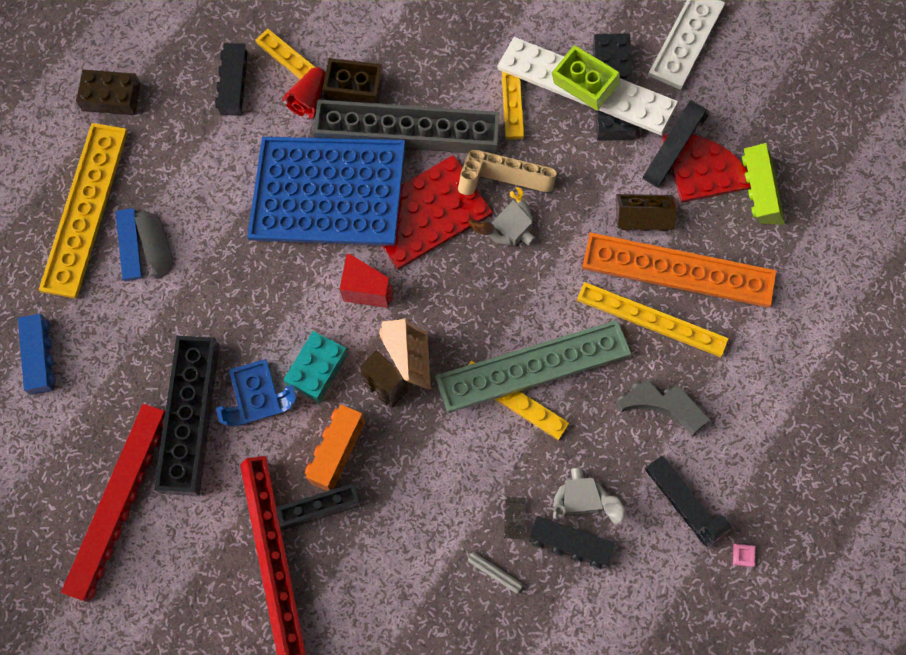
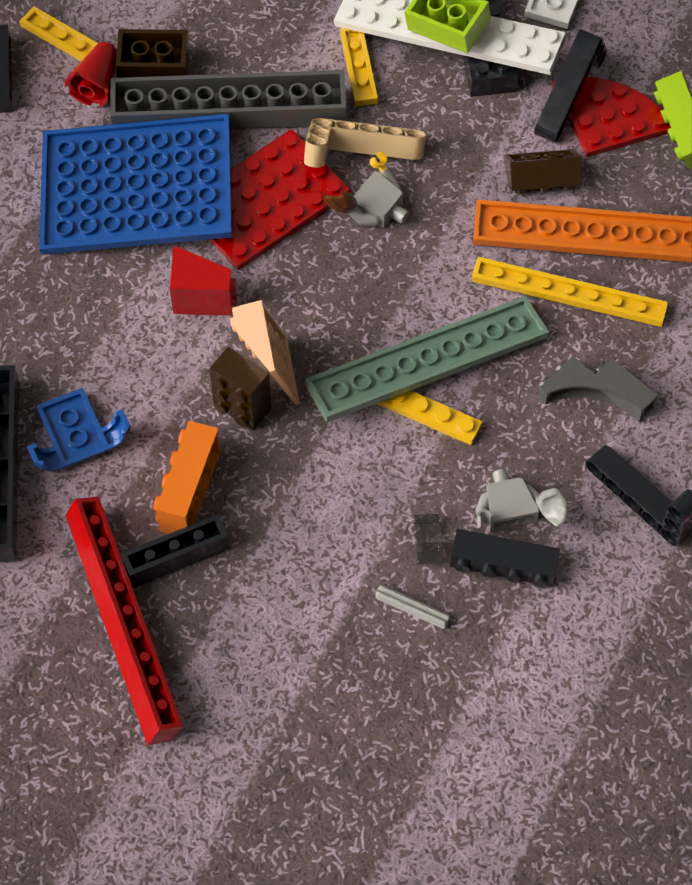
camera: 10 degrees left, 10 degrees down
(316, 366) = (150, 389): teal brick -> none

